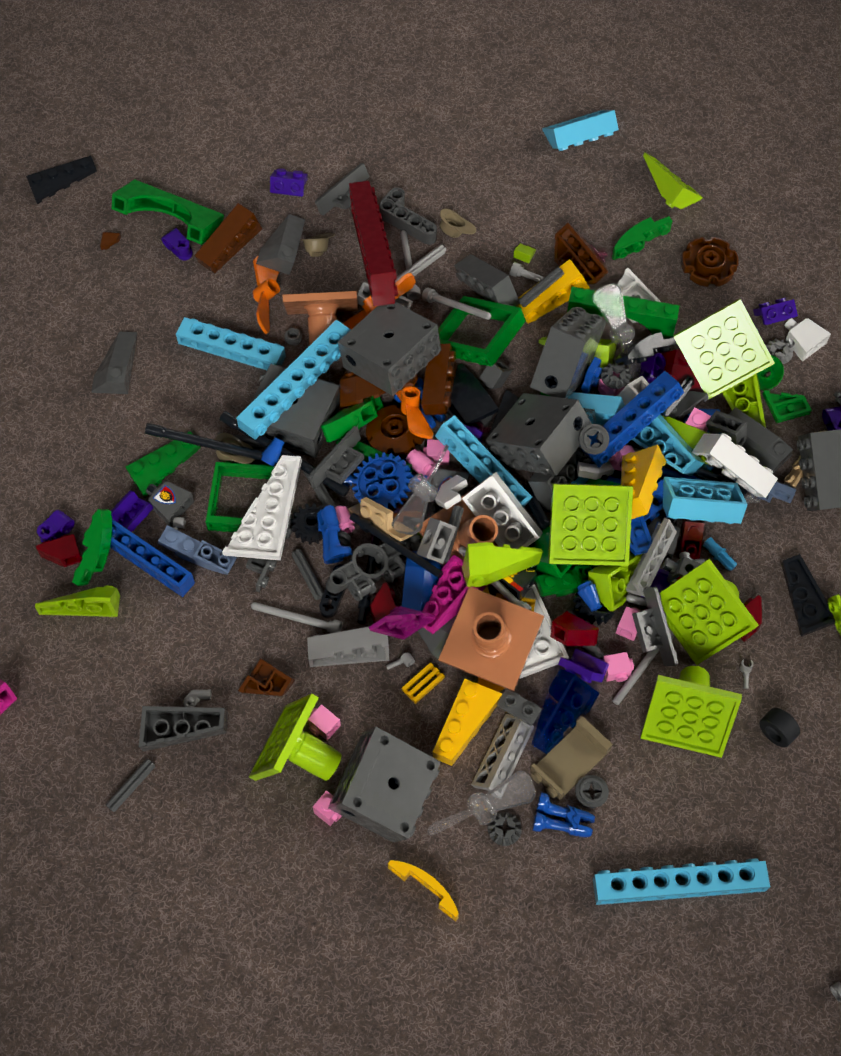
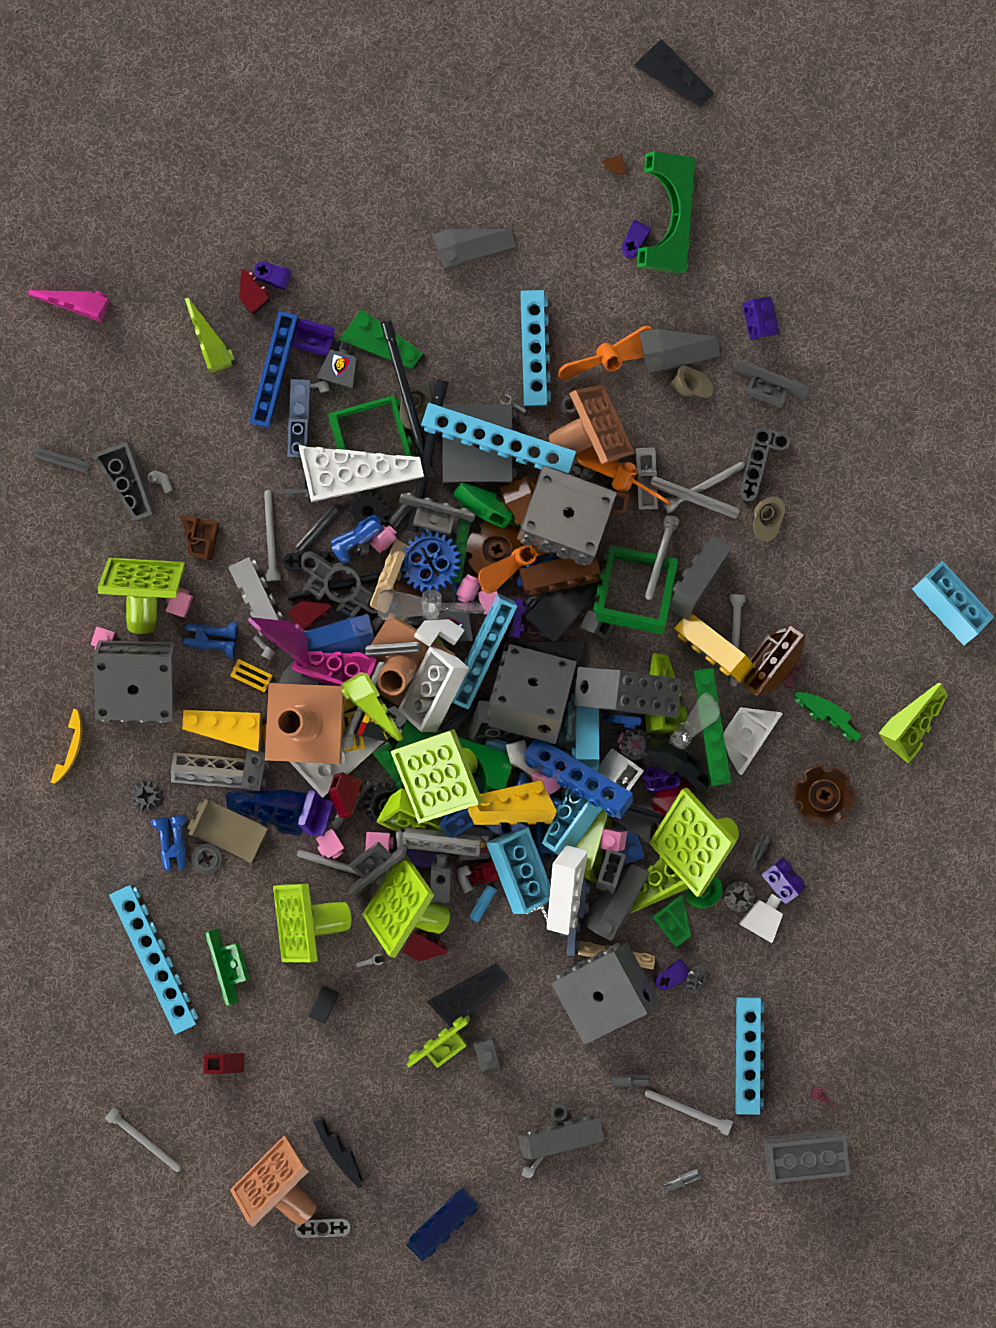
camera: 70 degrees right, 25 degrees up
(98, 541) = (260, 328): green slope -> none
(228, 238) = (657, 290): reddish brown wedge -> none
(272, 452) = (418, 446): blue cone -> none
(367, 526) = (377, 567): black bar -> none
(373, 244) = (687, 448): dark red brick -> none
(373, 712) = (203, 642): none -> blue piece
(436, 540) = (377, 639): light grey brick -> none
(510, 793) = (156, 770): clear piece -> none
(524, 253) = (765, 600): lime slope -> none
(541, 287) = (706, 636): dark grey axle -> none
(589, 594) = (380, 797): blue cone -> none
(602, 437) = (532, 754): dark grey gear -> none
(710, 805) = (228, 965): none -> green bracket
(813, 851) = (223, 1063): none -> dark red slope

